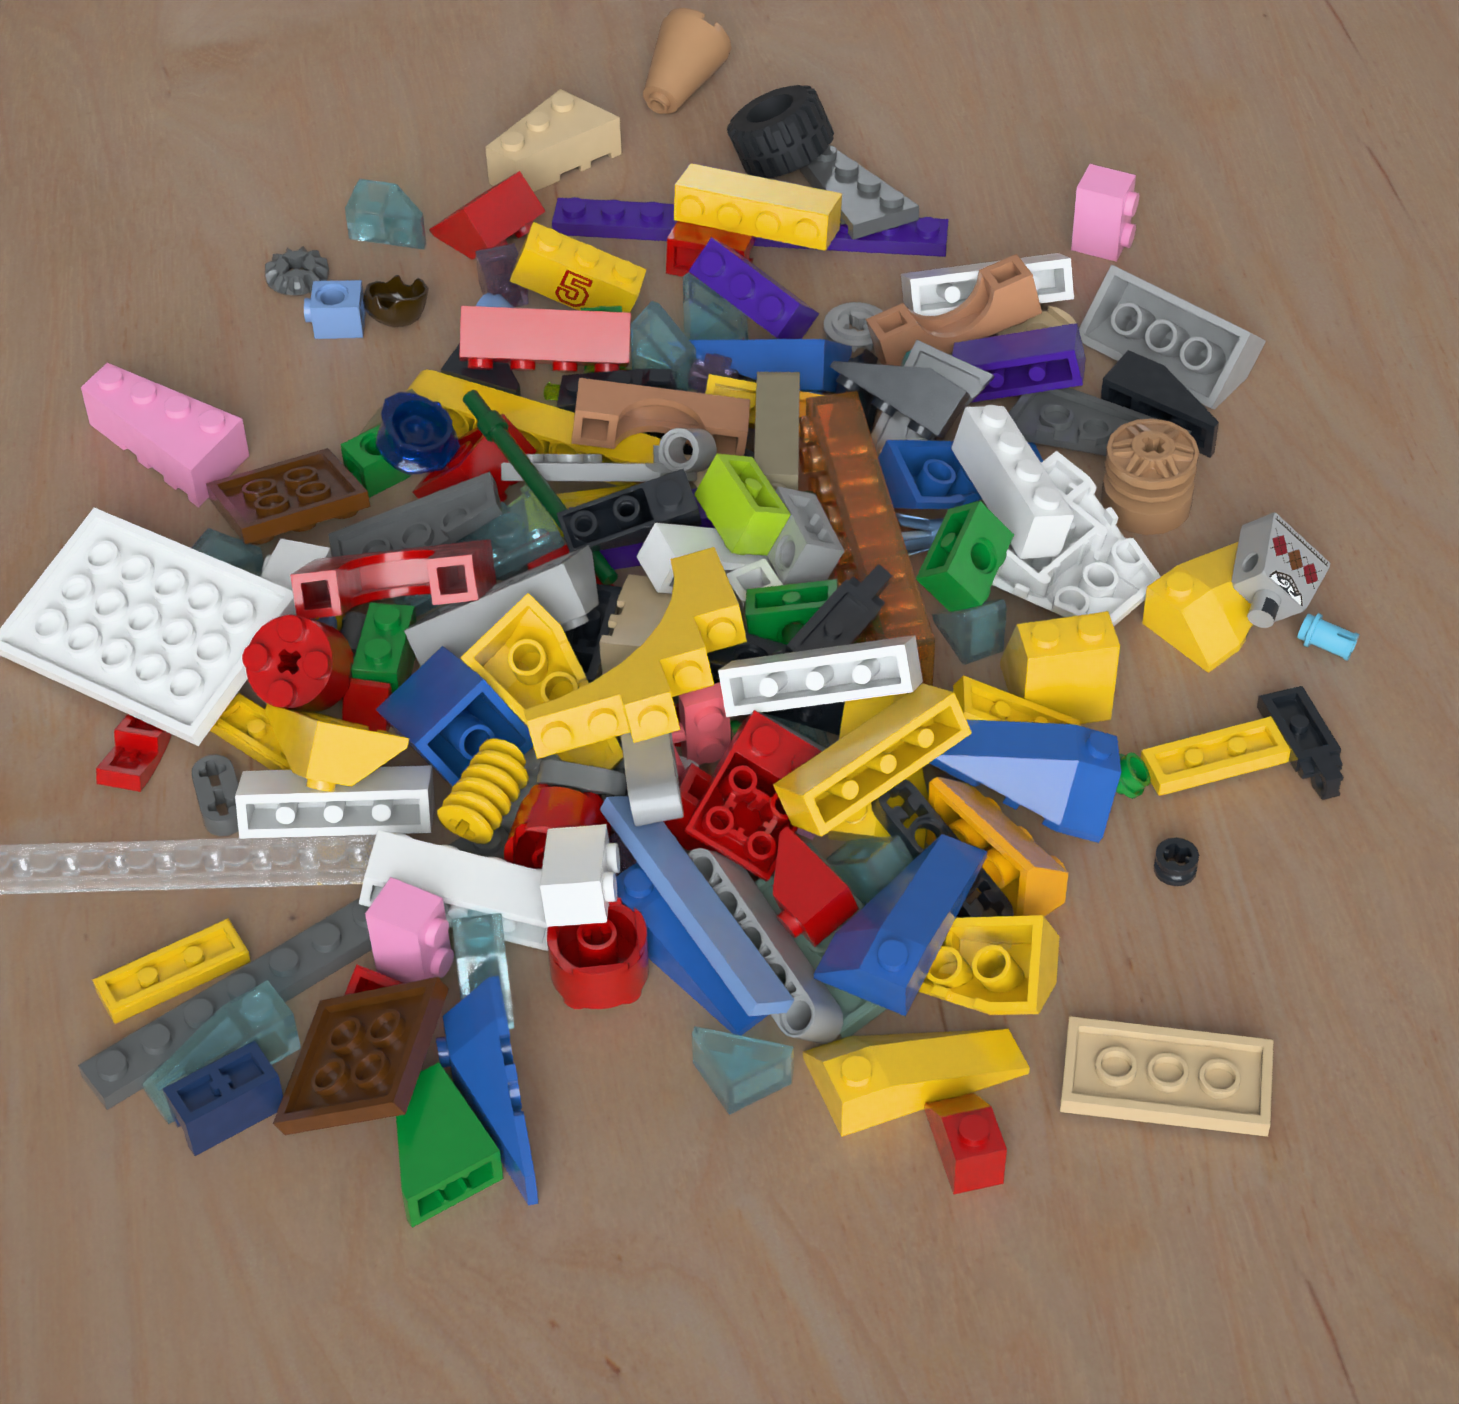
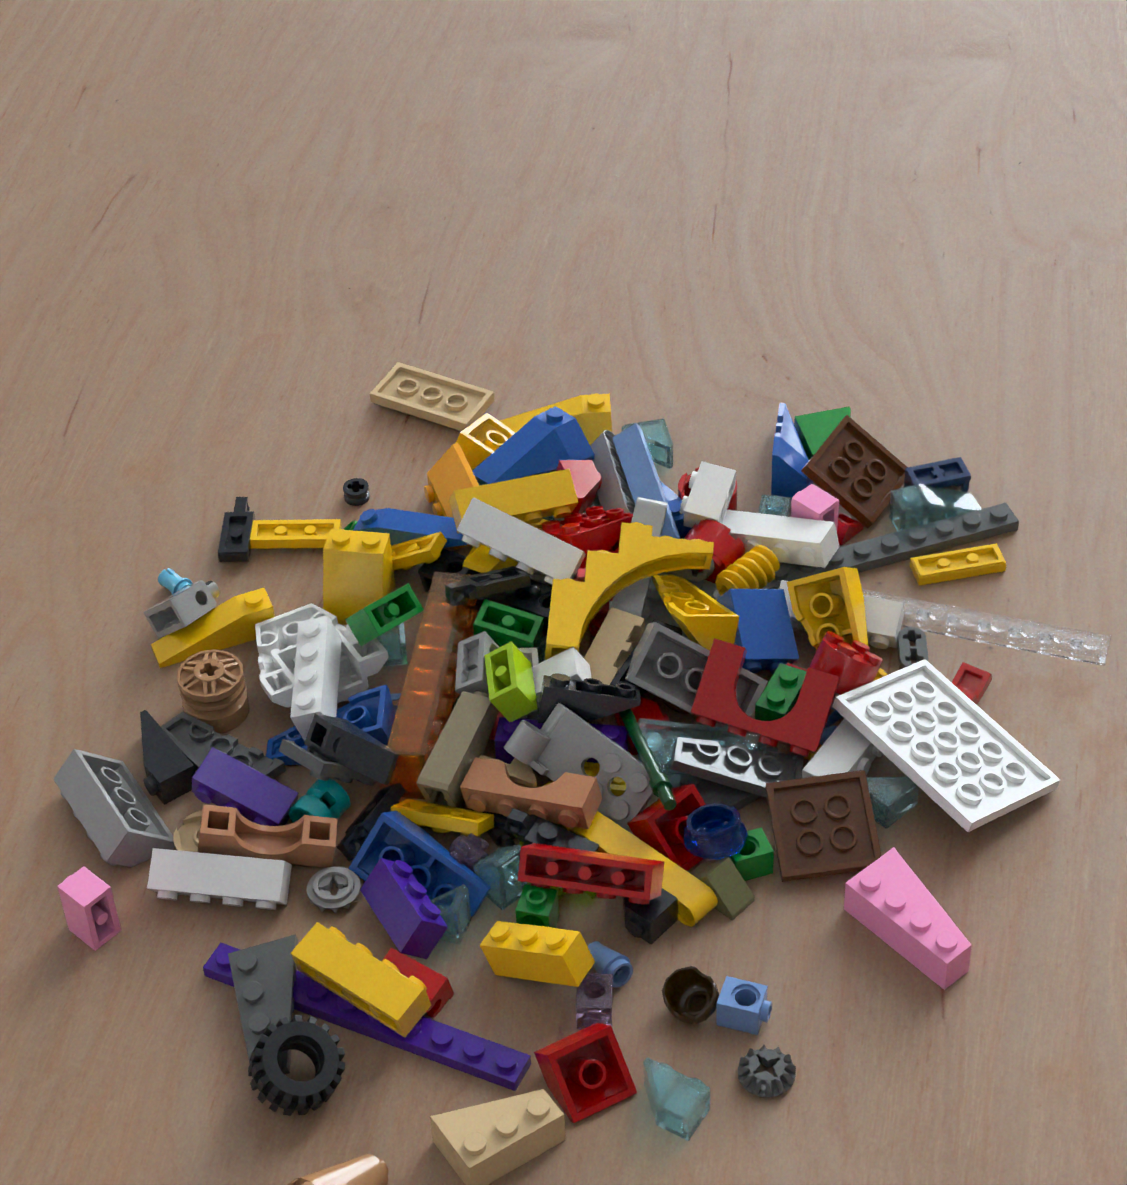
camera: 160 degrees left, 5 degrees down
(968, 1142) = (550, 382): red slope -> none

